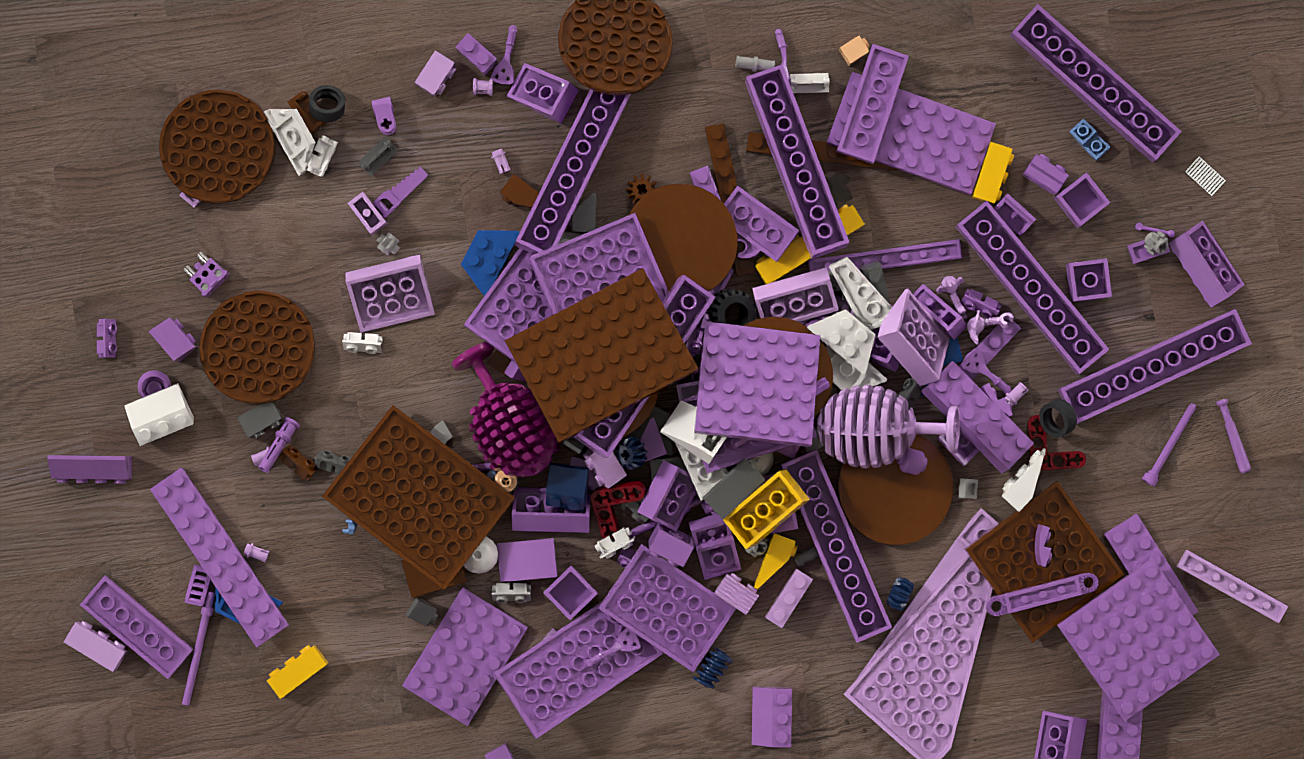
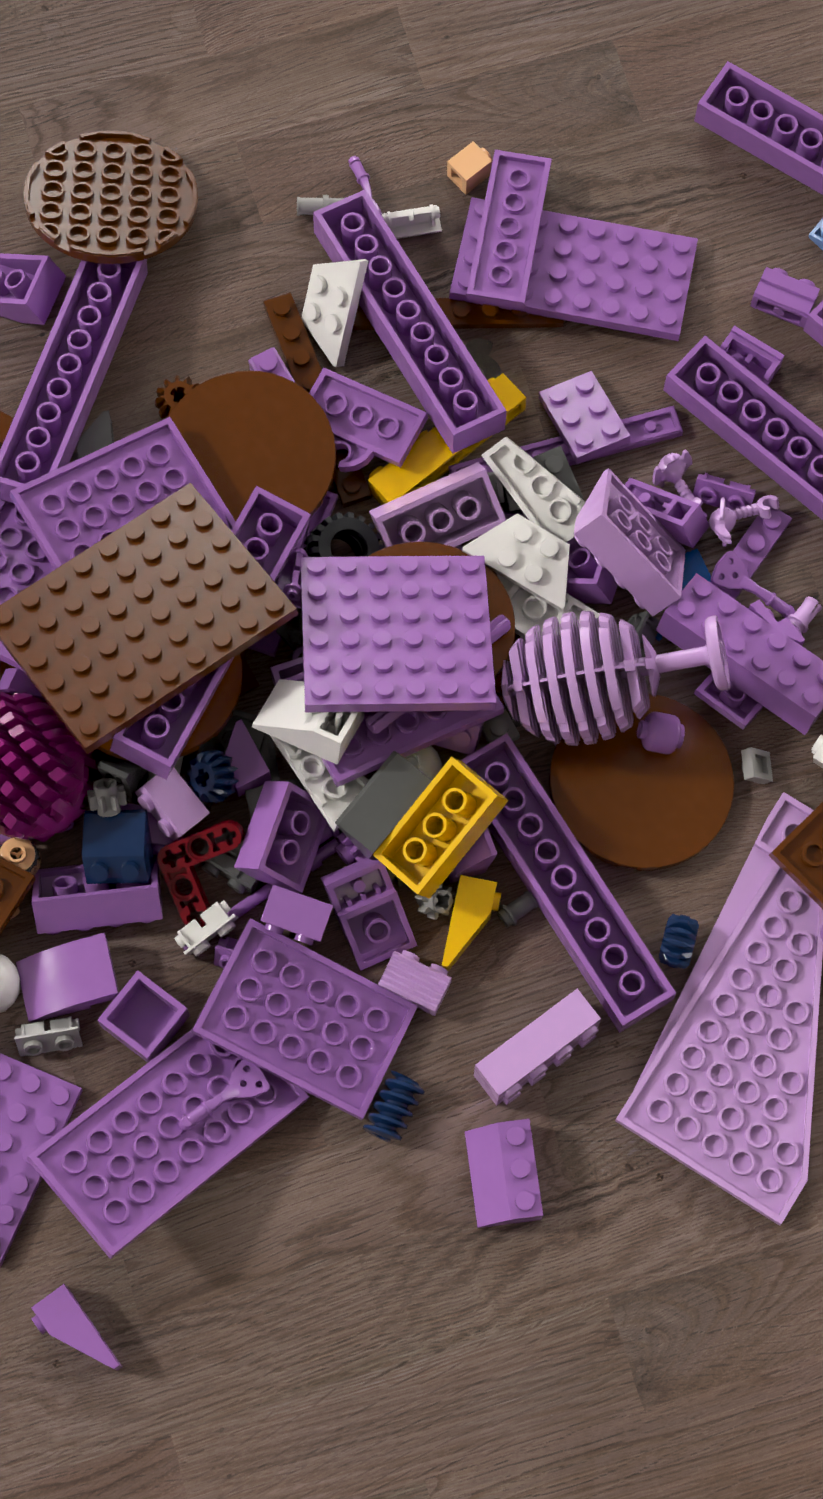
camera: 10 degrees left, 15 degrees down
(565, 458) = (106, 797): none -> light grey gear
(749, 142) = (333, 305): none -> white wing
(788, 598) = (500, 976): lavender brick -> none
(804, 646) = (537, 1047): none -> lavender brick
(900, 240) = (584, 417): none -> plate
(992, 173) = (706, 303): yellow brick -> none

